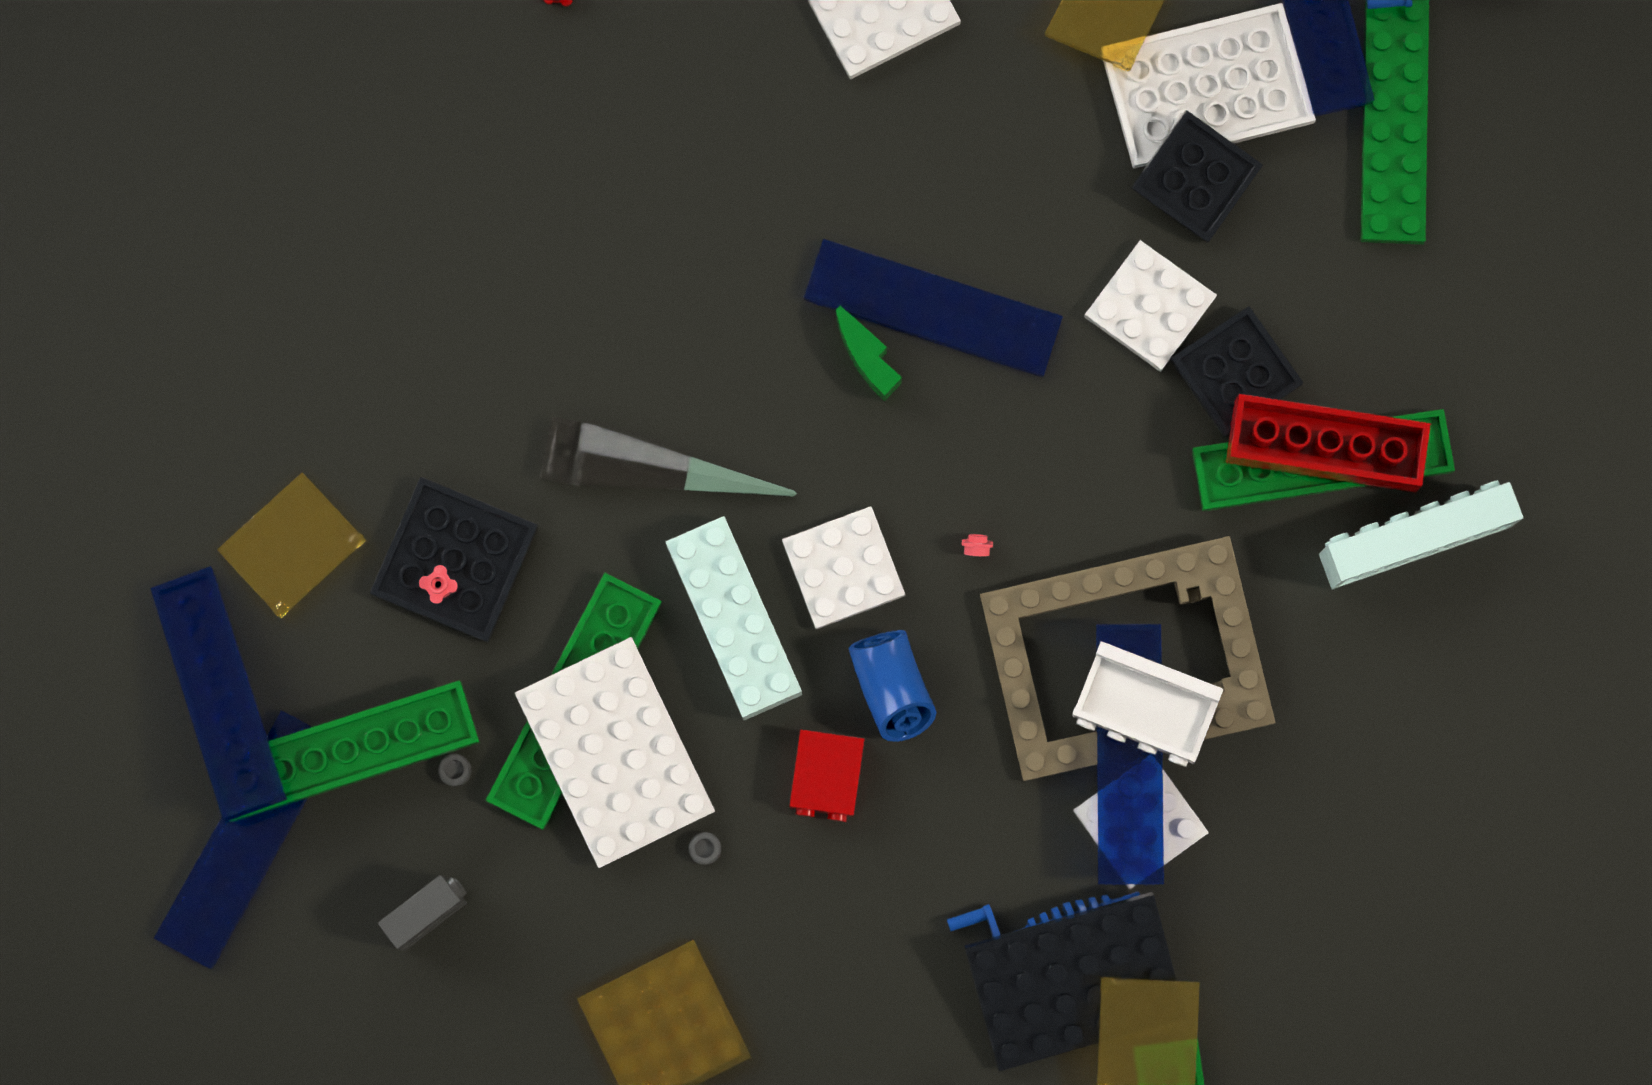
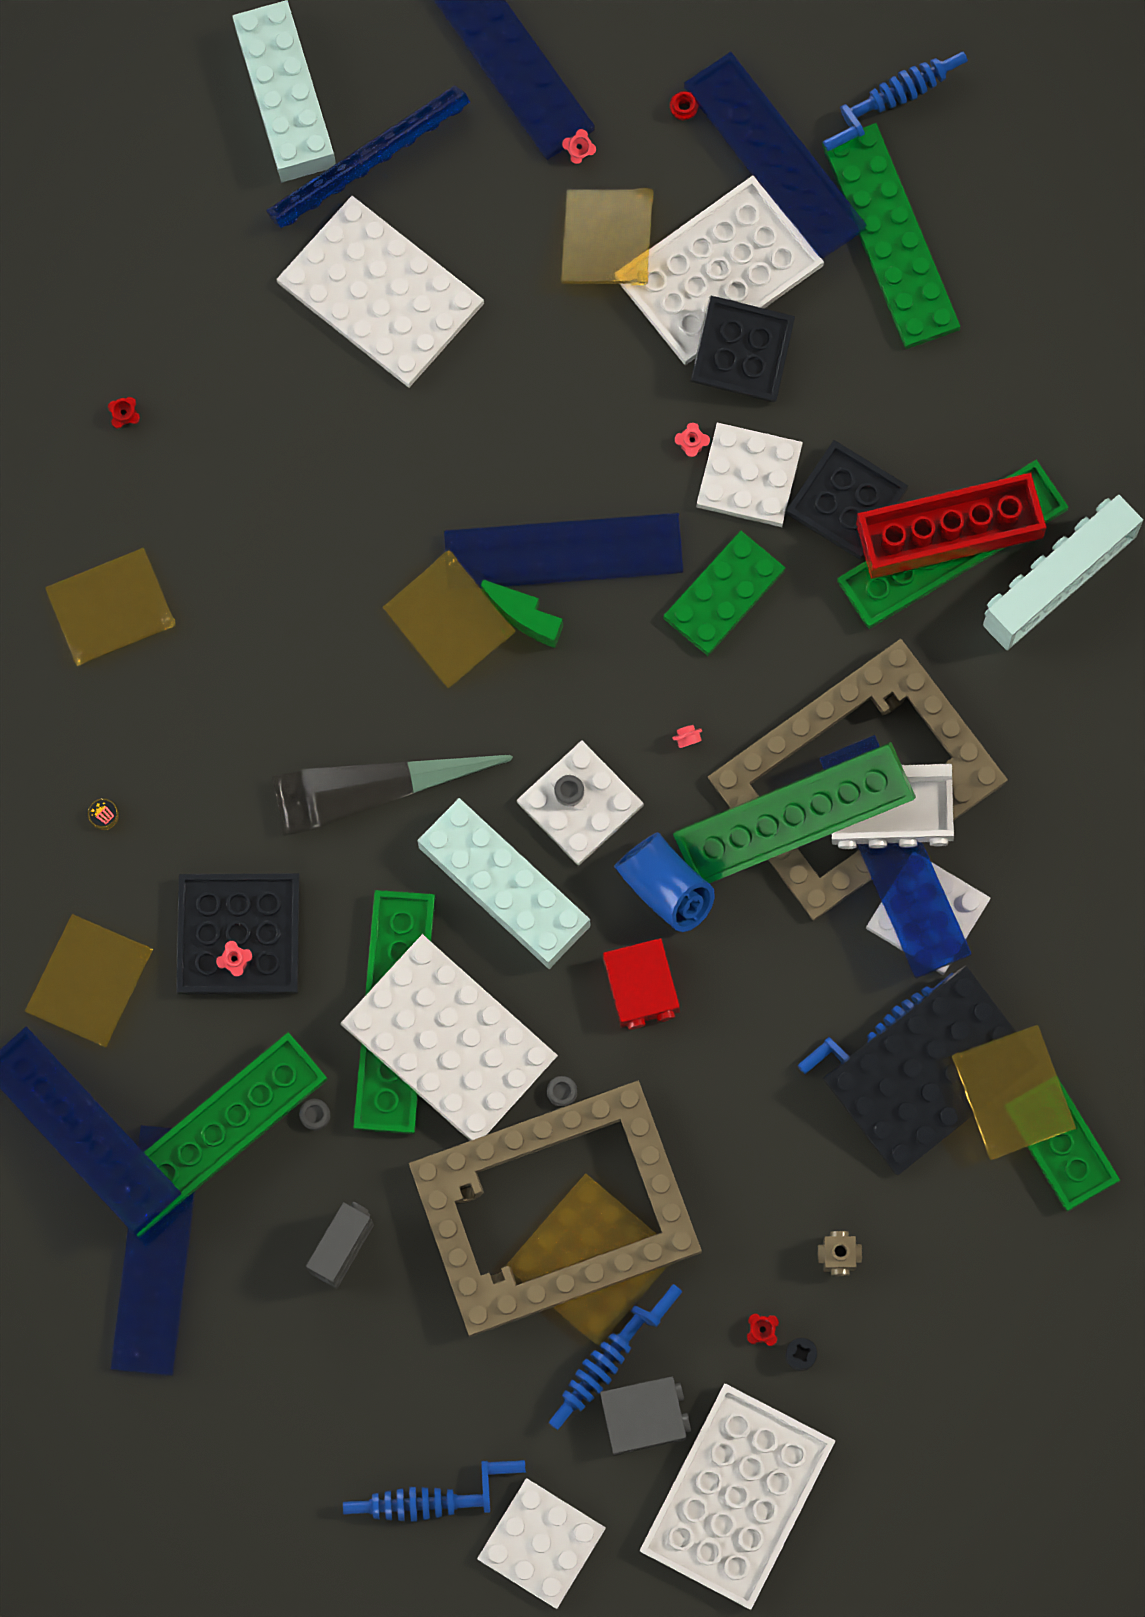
camera: 20 degrees left, 5 degrees down
(373, 385) = (103, 814): none -> tile
(465, 180) = (110, 606): none -> clear yellow piece
(553, 1027) = (496, 1299): none -> dark tan plate
(791, 330) = (449, 619): none -> clear yellow piece
(836, 552) = (569, 790): none -> dark grey tile
(1048, 673) = (795, 814): none -> green plate
(1074, 415) = (724, 593): none -> green plate
(1103, 255) = (692, 448): none -> coral plate

